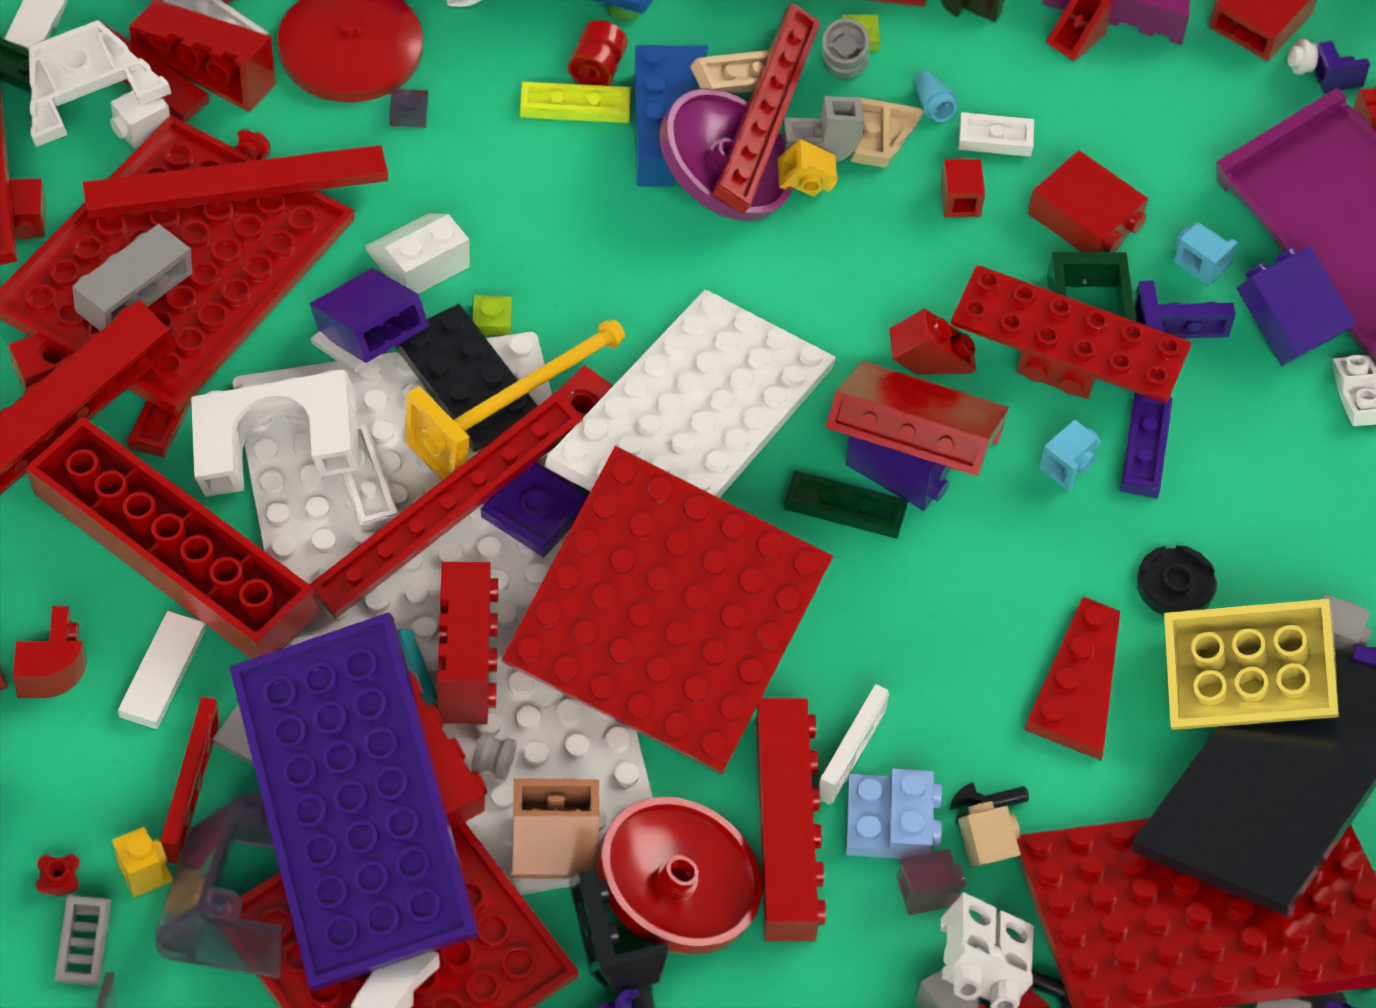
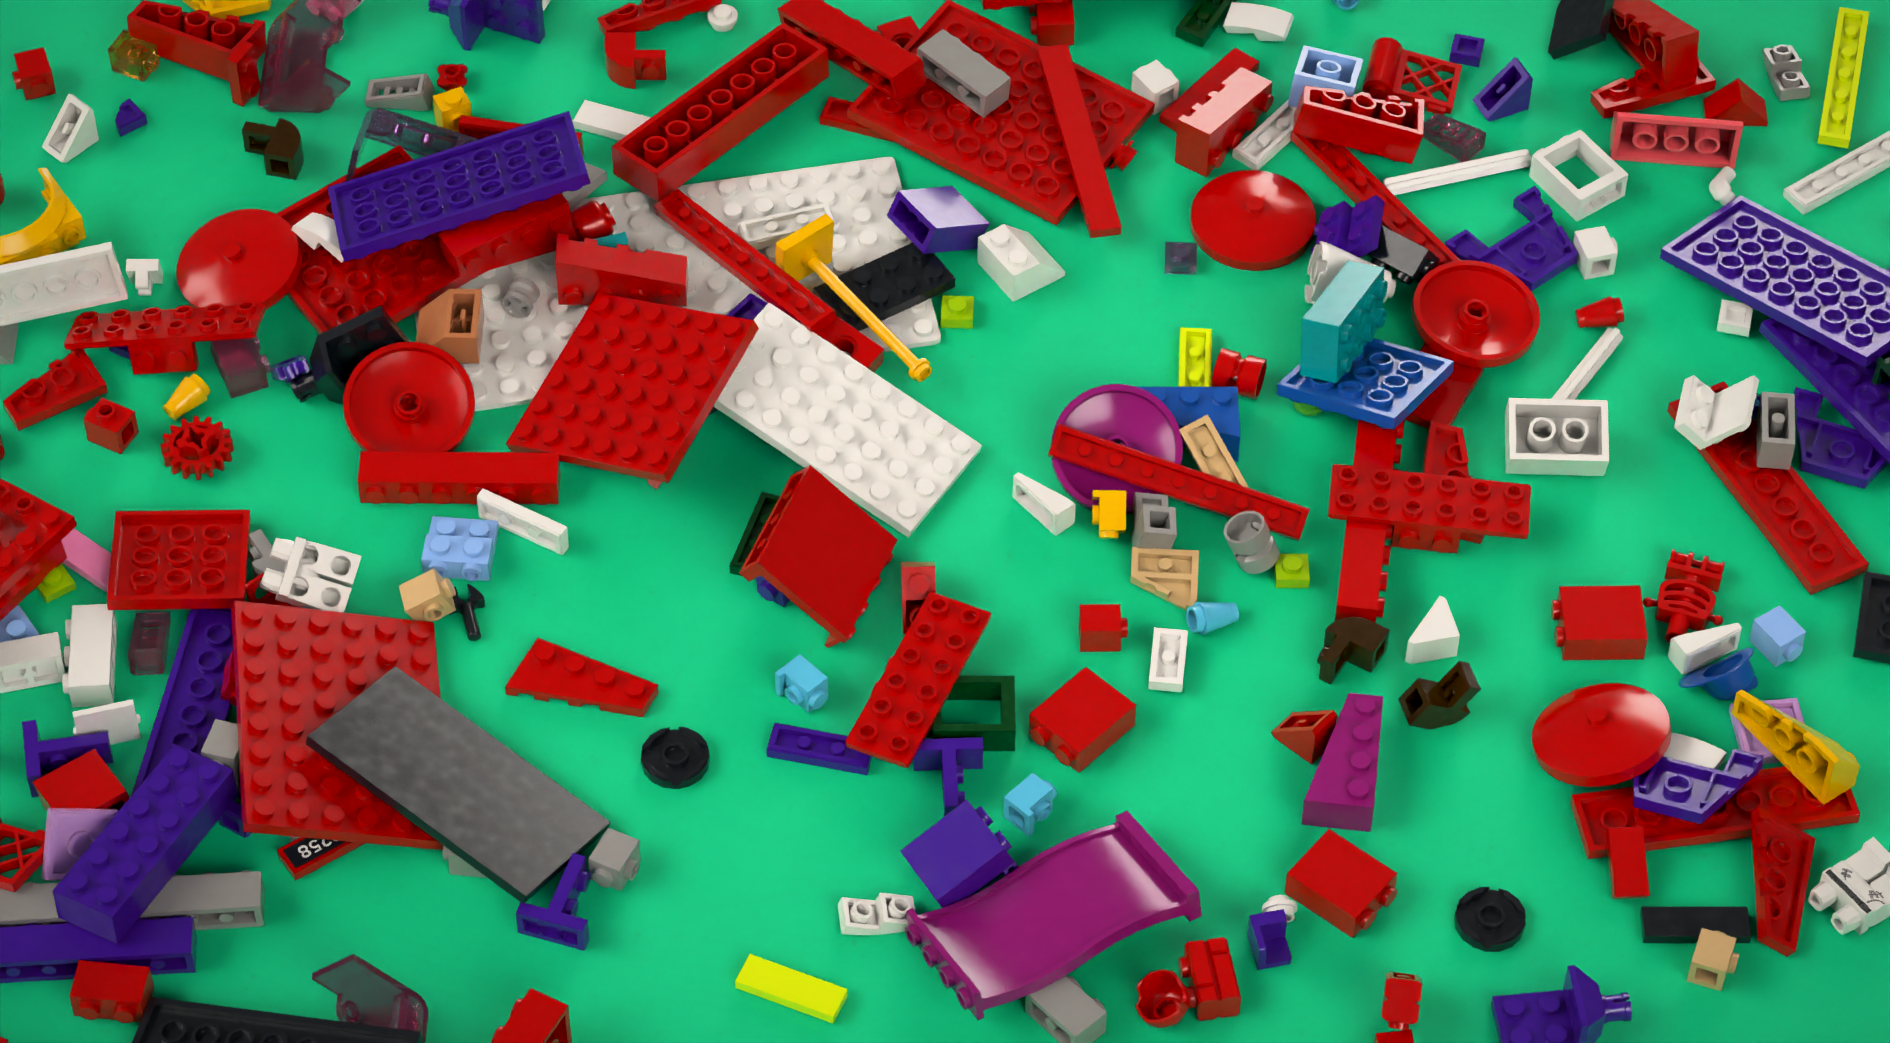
camera: 95 degrees right, 5 degrees down
(79, 65) = (1190, 34): white wing -> none
(228, 417) = (826, 191): white arch -> none
(793, 233) = (1044, 504): none -> white slope
(930, 881) = (393, 561): clear pink brick -> none
(1251, 664) = (563, 773): light yellow slope -> none

